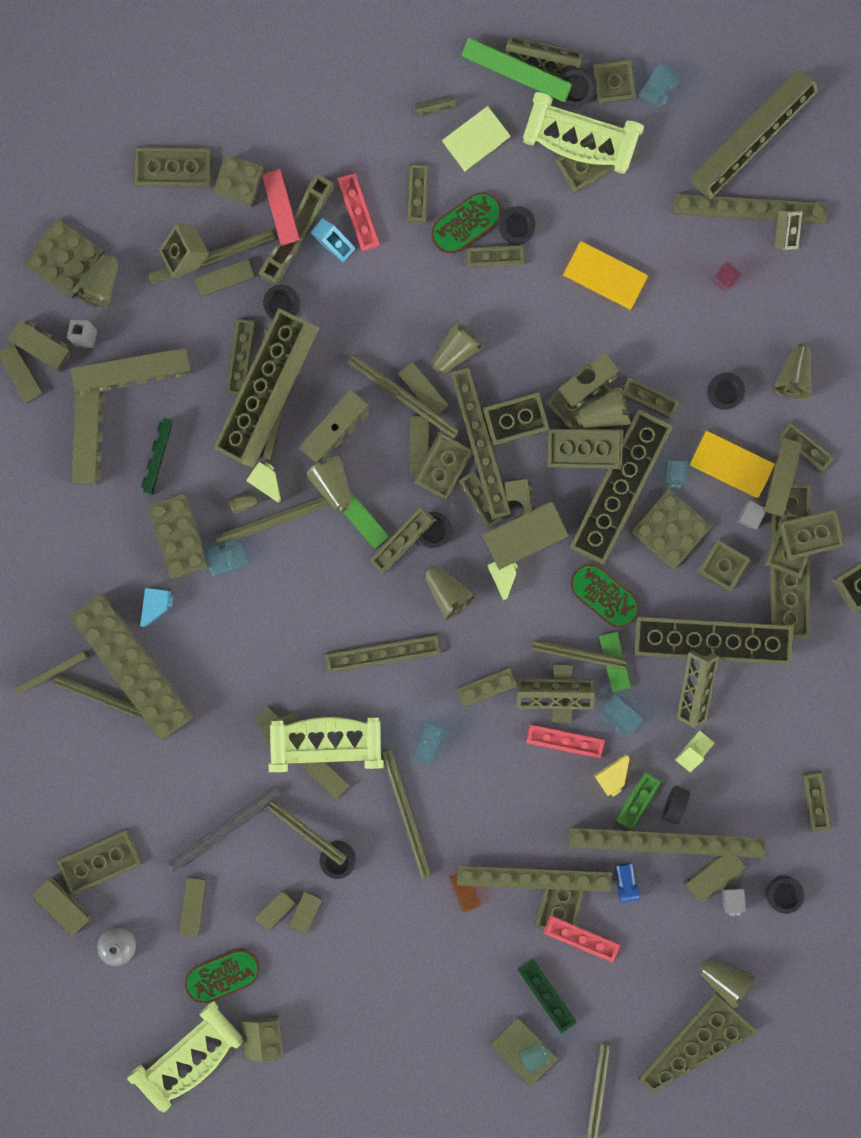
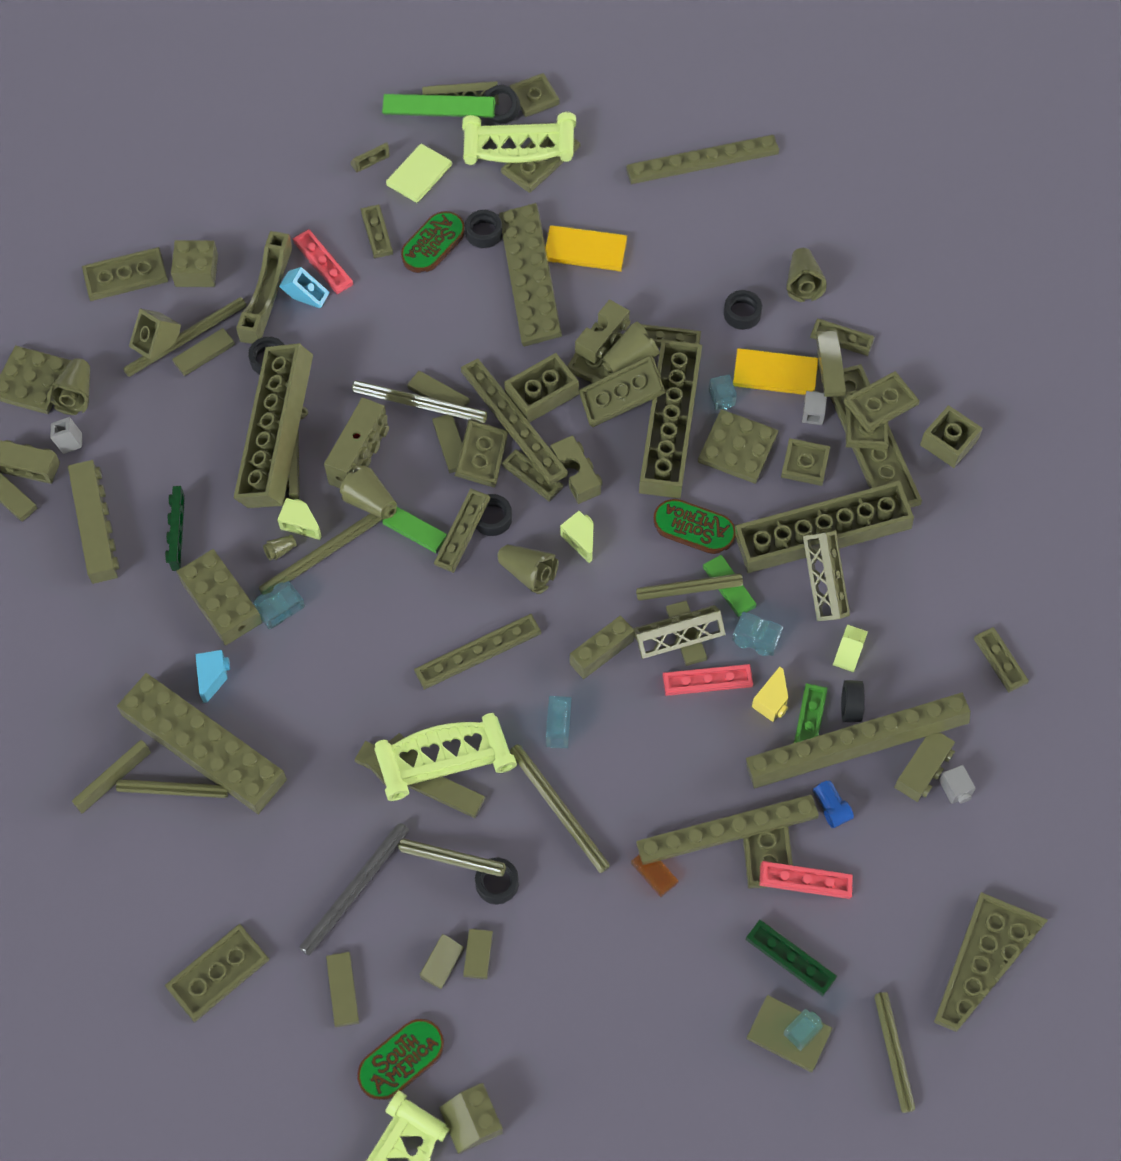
camera: 15 degrees left, 25 degrees down
(61, 906) = (184, 1036): olive brick -> none
(116, 946) = (262, 1064): light grey cylinder -> none
(130, 370) = (125, 451): olive brick -> none
(240, 355) = (238, 413): olive tile -> none
(280, 207) = (243, 273): coral tile -> none
(455, 349) = (459, 343): olive cone -> none
(495, 256) = (471, 261): olive tile -> none
(525, 535) = (589, 485): olive tile -> none
(544, 289) = (530, 275): none -> olive plate
(659, 85) = (577, 86): clear light blue brick -> none
(726, 276) = (702, 214): clear pink brick -> none
(727, 980) = (987, 871): olive cone -> none
(754, 134) = (681, 98): olive brick -> none
(788, 229) = (745, 163): olive slope -> none
(799, 894) = (1018, 748): black tyre -> none

